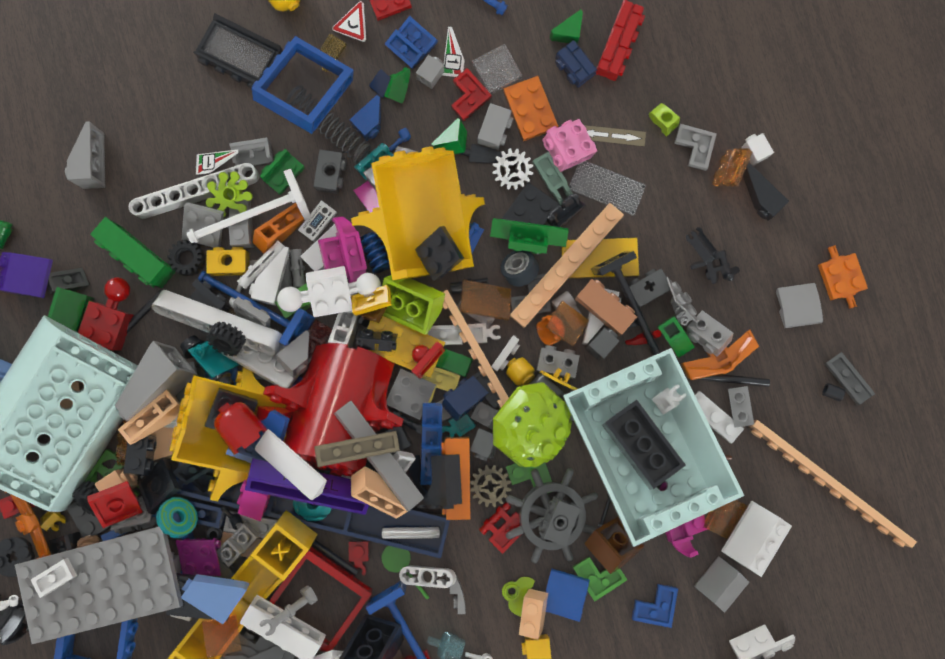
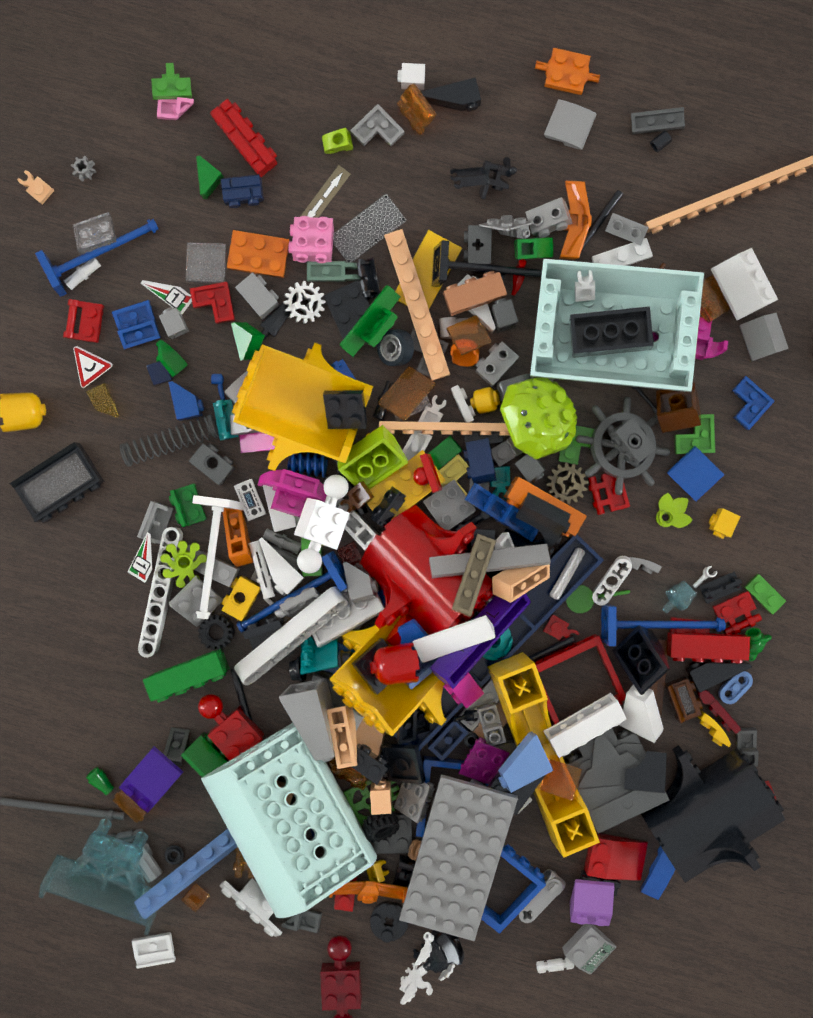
camera: 60 degrees left, 5 degrees up
(53, 577) = (431, 890): white plate -> none
(87, 159) = (79, 669): light grey slope -> none
(114, 504) = (399, 806): red plate -> none
(184, 510) = (440, 751): teal tile -> none
(226, 338) = (311, 635): black tyre -> none
(290, 610) = (571, 688): light grey piece -> none
(311, 121) = (139, 469): blue window -> none
(379, 300) = (355, 484): yellow plate -> none
(533, 613) = (695, 509): light nougat brick -> none
(555, 377) = (509, 372): yellow piece -> none

